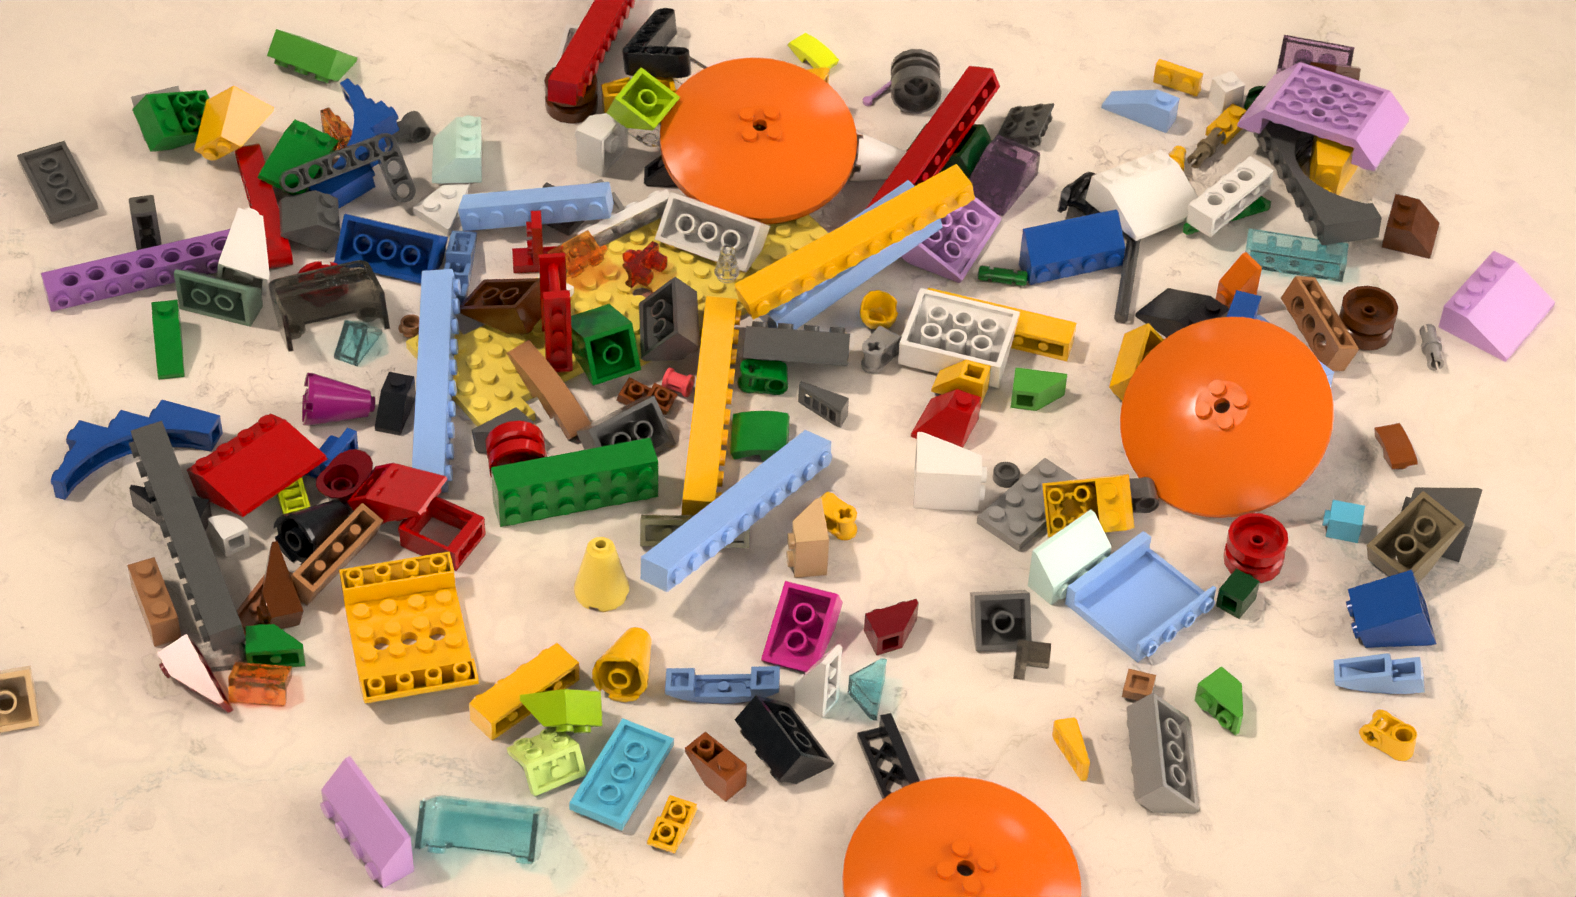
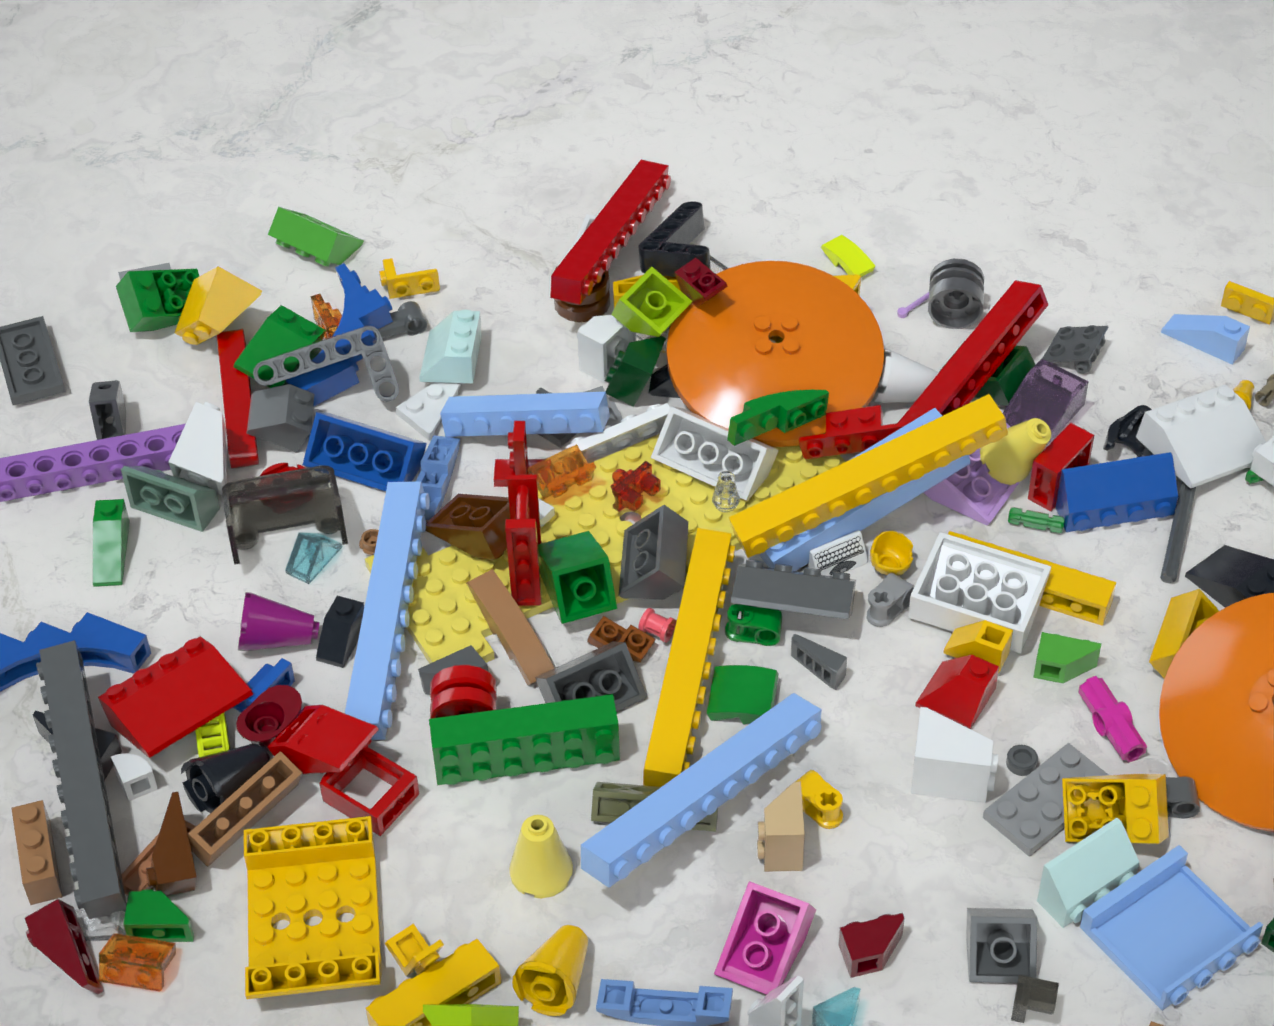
camera: 10 degrees right, 0 degrees up
(406, 95) = (408, 283): none -> yellow bracket
(500, 658) = (412, 950): none -> yellow bracket
(630, 162) = (633, 369): none -> dark green slope
(685, 79) = (699, 282): none -> dark red slope
(767, 190) = (777, 410): none -> green slope
(831, 207) = (848, 433): none -> red bracket
(833, 313) = (839, 555): none -> slope
(981, 217) = (1014, 454): none -> light yellow cone
(1026, 212) = (1067, 450): none -> red window
(1080, 436) = (1112, 719): none -> dark pink piece

